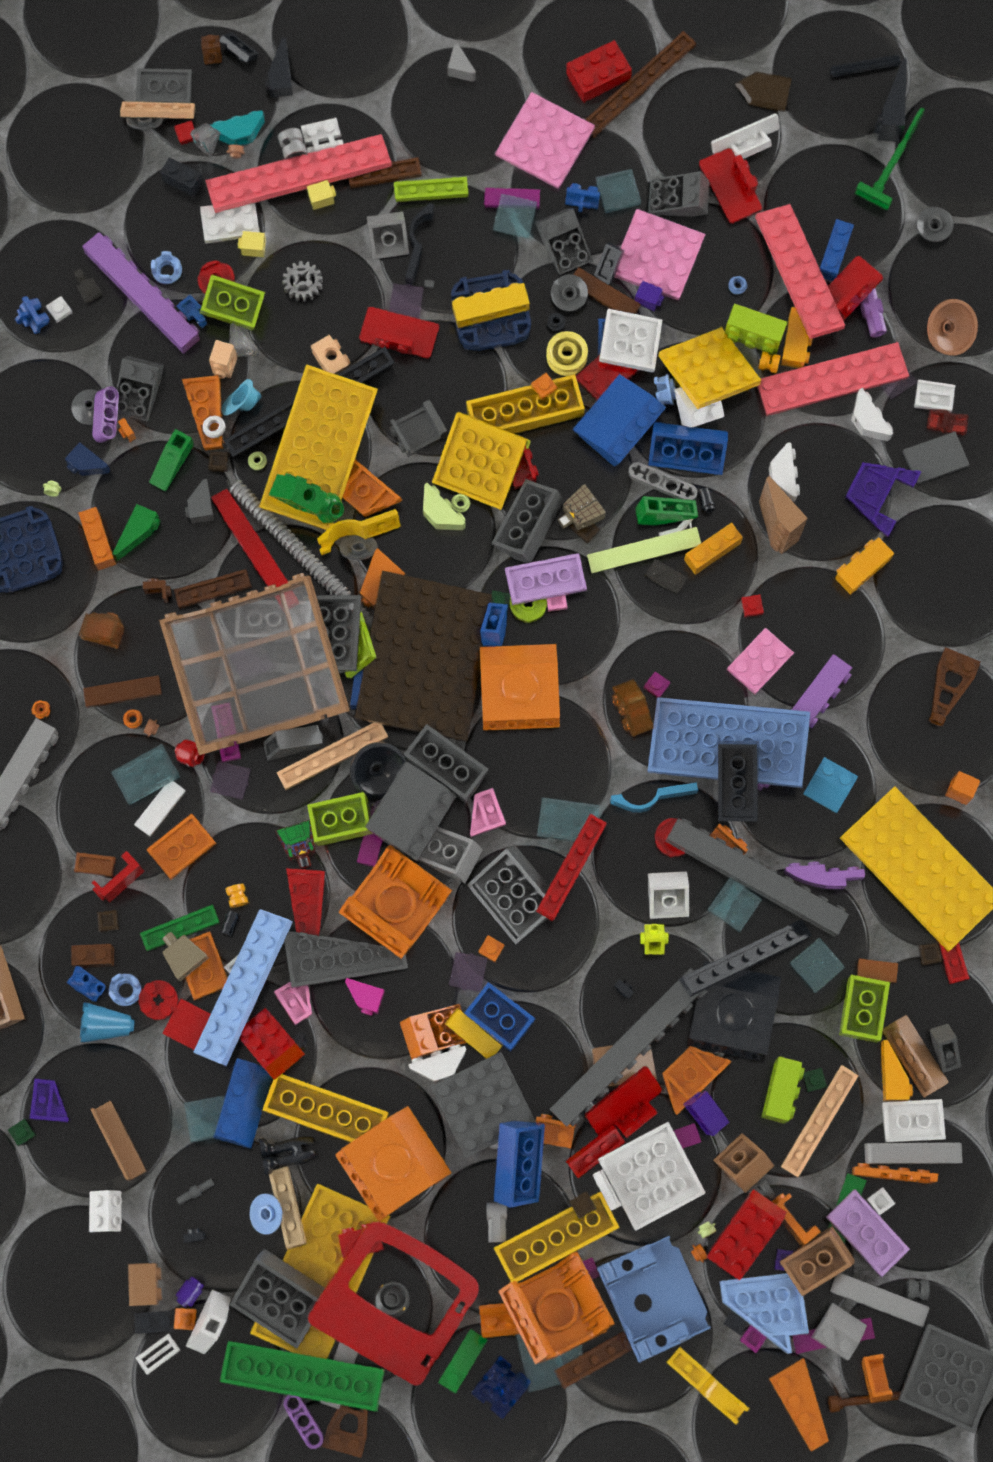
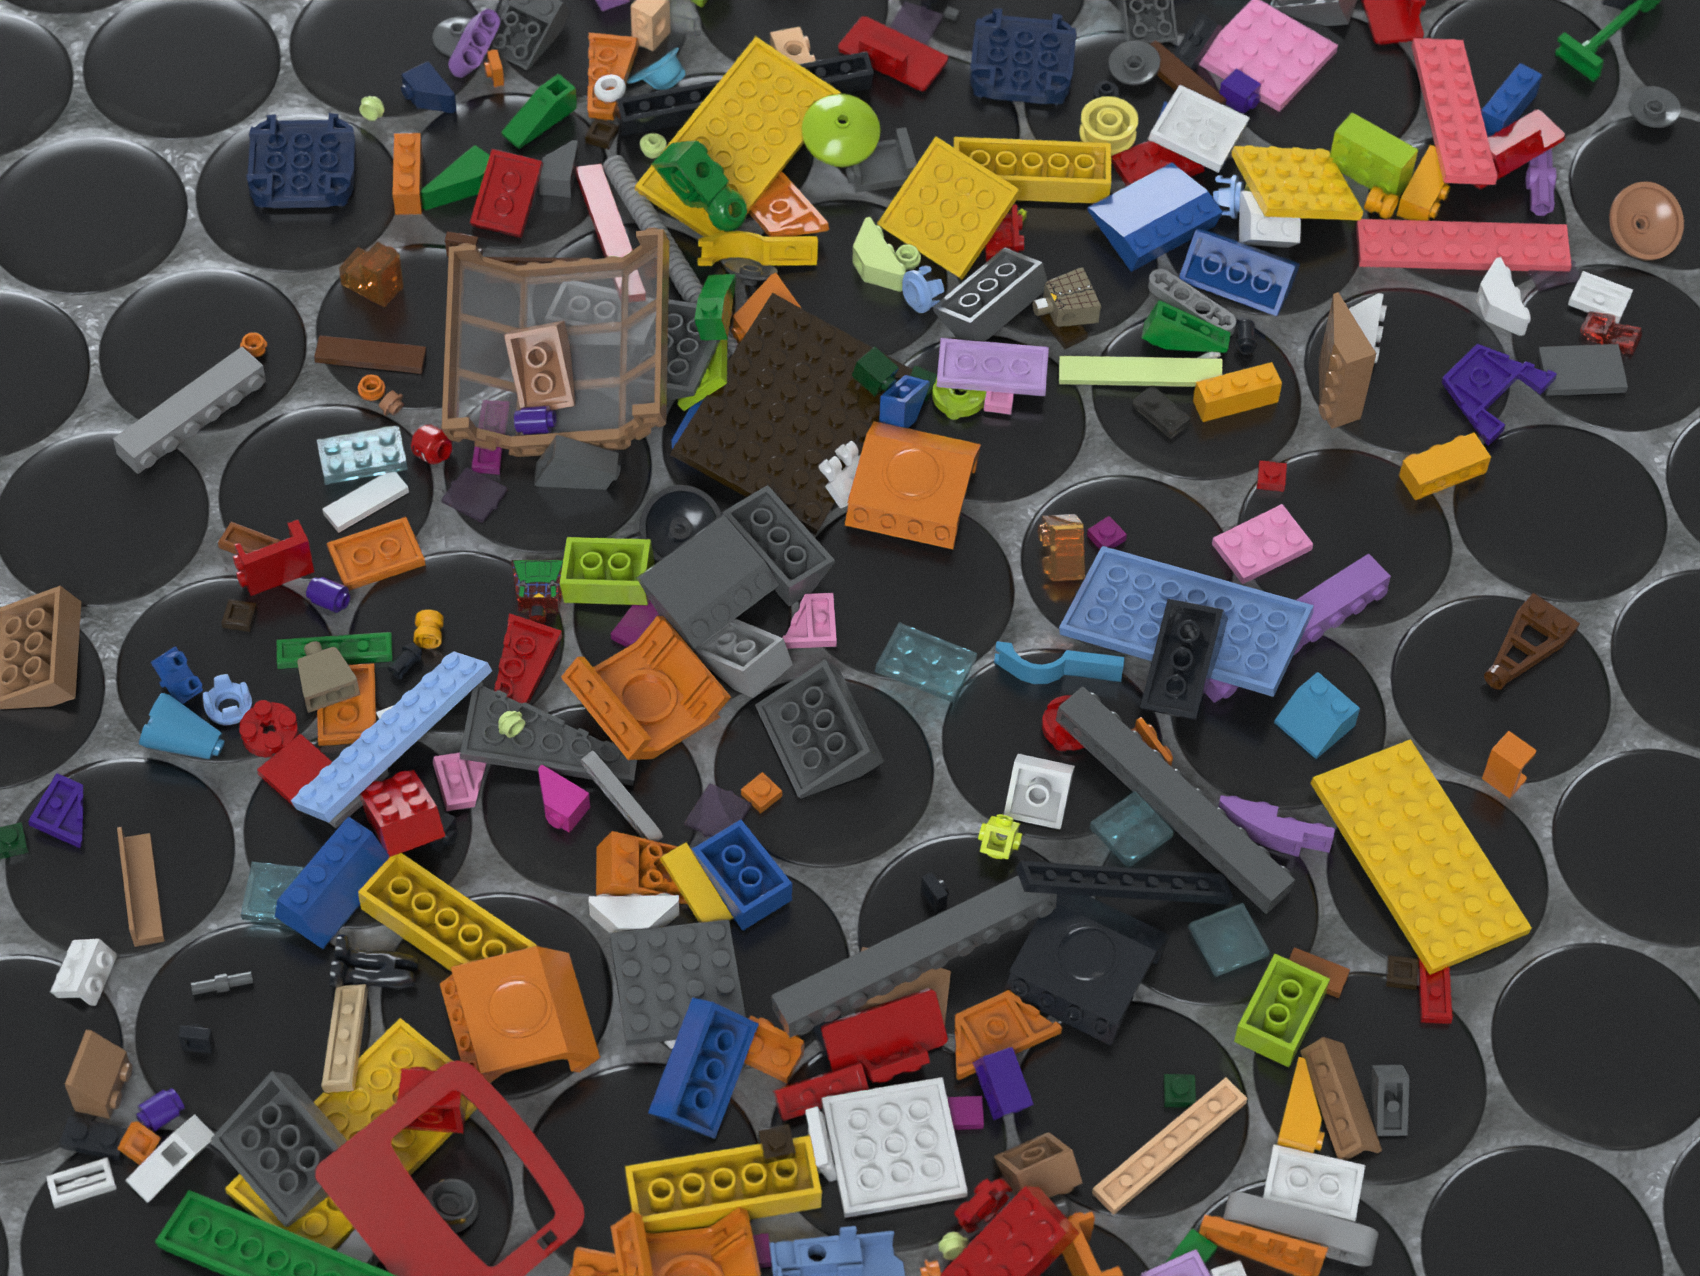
camera: 15 degrees right, 20 degrees down
(92, 955) = (202, 646): reddish brown brick -> none
(161, 889) = (328, 594): none -> dark purple brick
(172, 536) = (506, 193): none -> red plate
(247, 680) = (542, 365): none -> nougat slope
(255, 719) = (535, 420): none -> dark purple brick
(266, 1213) = (311, 1036): light blue dish -> none
(317, 957) = (511, 723): none -> yellowish green plate
(331, 755) = (611, 499): light nougat plate -> none
(349, 597) = (715, 307): none -> green slope
(377, 428) = (837, 142): none -> lime dish
(405, 985) = (620, 797): none -> light grey beam
(470, 611) = (875, 372): none -> dark green brick
(472, 700) = (841, 480): none -> white plate
(476, 533) = (917, 287): none -> light blue piece
(490, 305) = (1024, 45): yellow brick -> none
(496, 1221) = (644, 1137): light grey piece -> none
(544, 386) = (1064, 144): orange plate -> none
(571, 867) = (909, 709): red tile -> none
(718, 1201) = (985, 1205): none -> red plate
(737, 280) = (1365, 109): medium blue plate -> none
(783, 1090) = (1126, 1081): lime brick -> none

